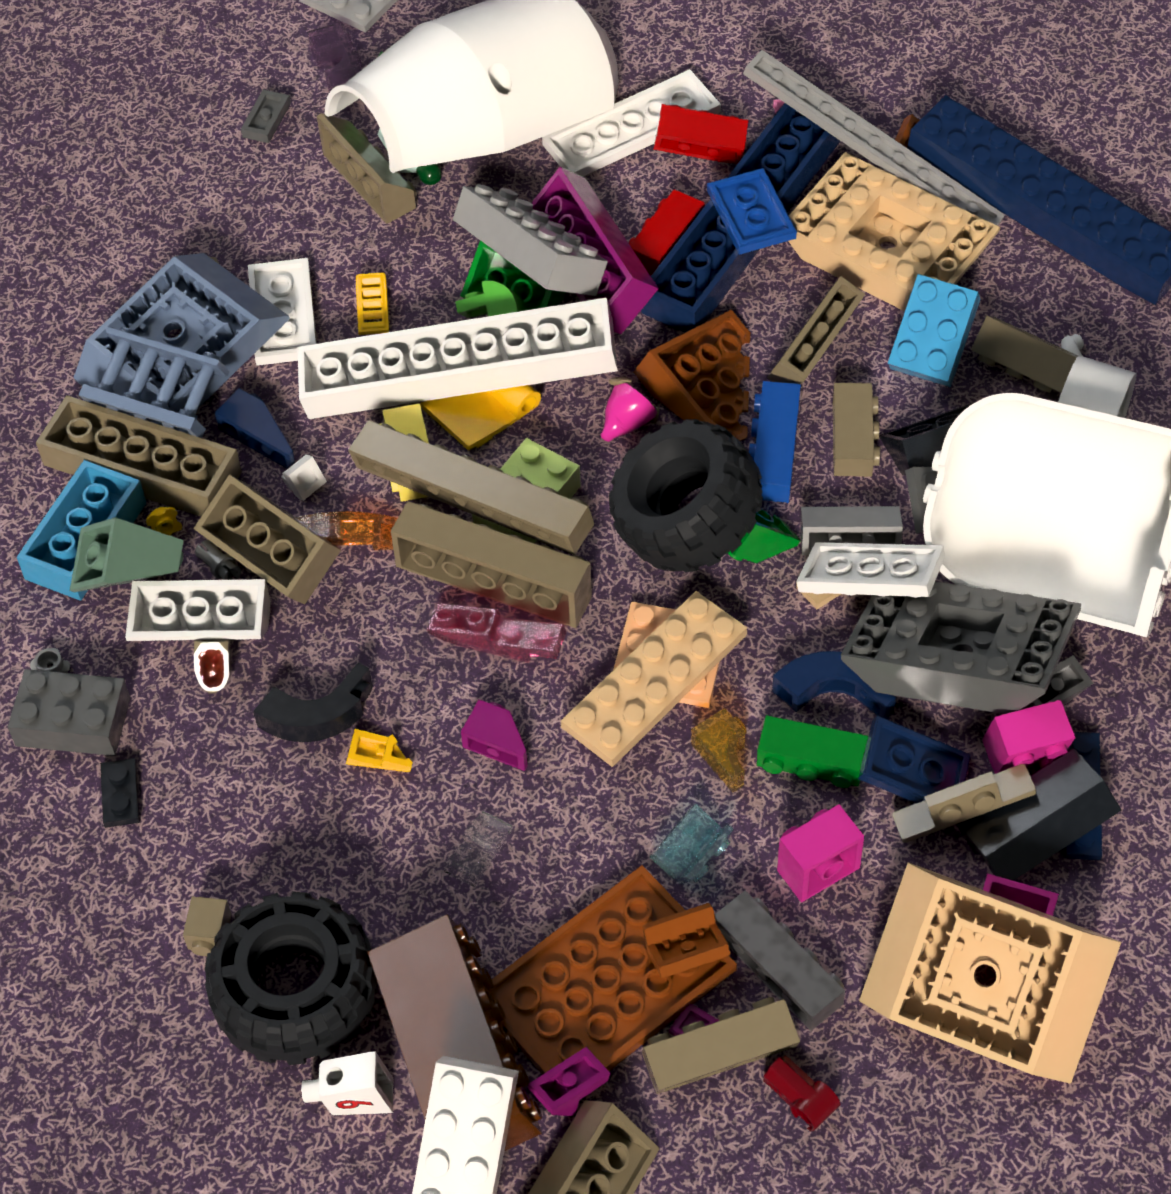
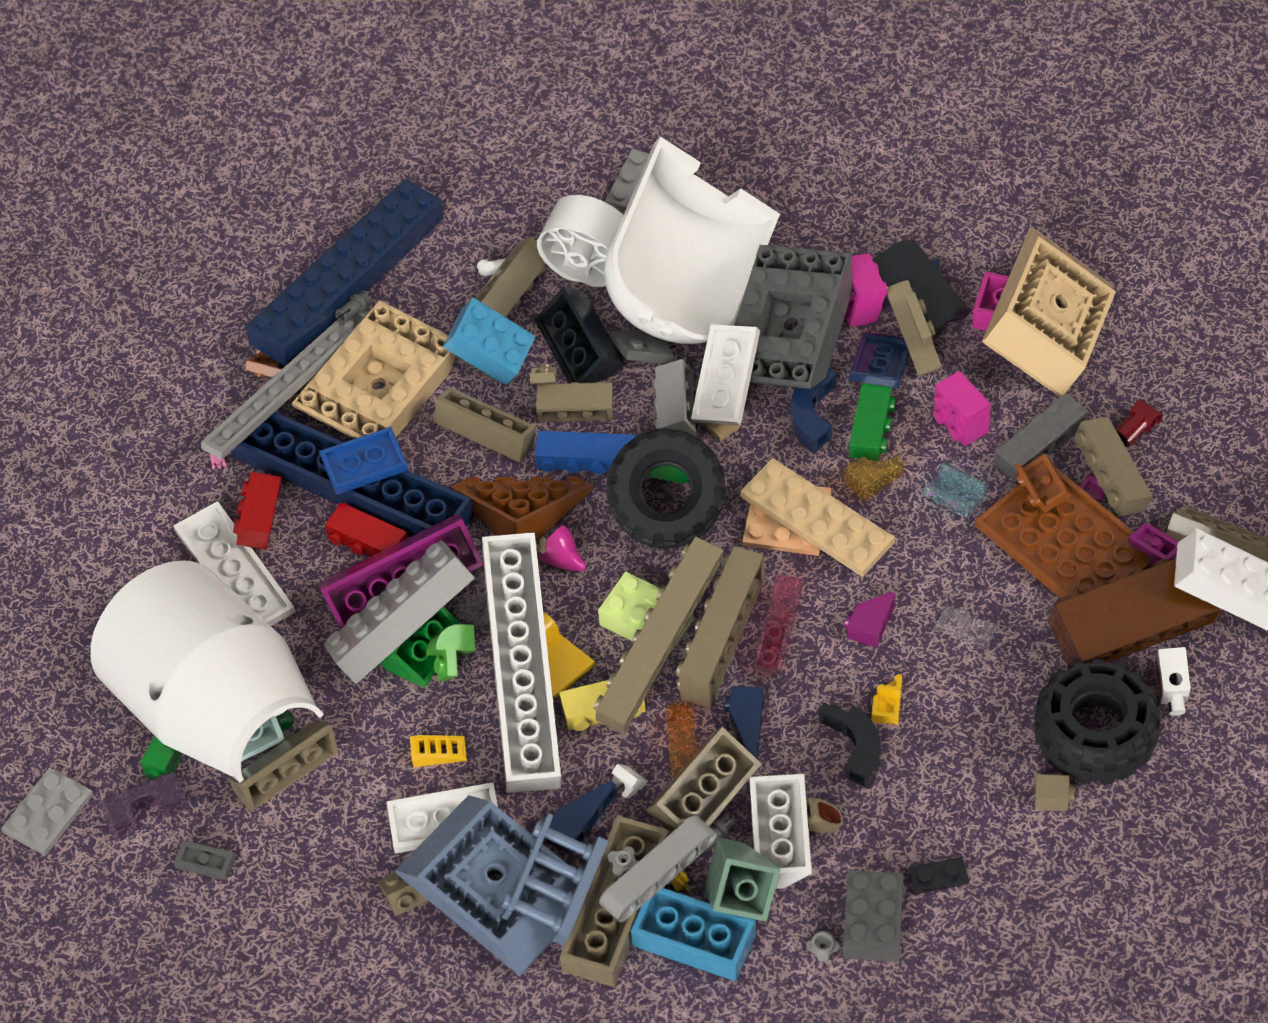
camera: 90 degrees left, 0 degrees up
(149, 478) = (657, 868): none -> light grey beam
(167, 455) = (621, 868): none -> light grey plate
(364, 594) = (745, 715): none -> dark blue slope
(888, 394) = (543, 374): none -> dark tan slope
(993, 207) = (356, 305): none -> dark grey pin

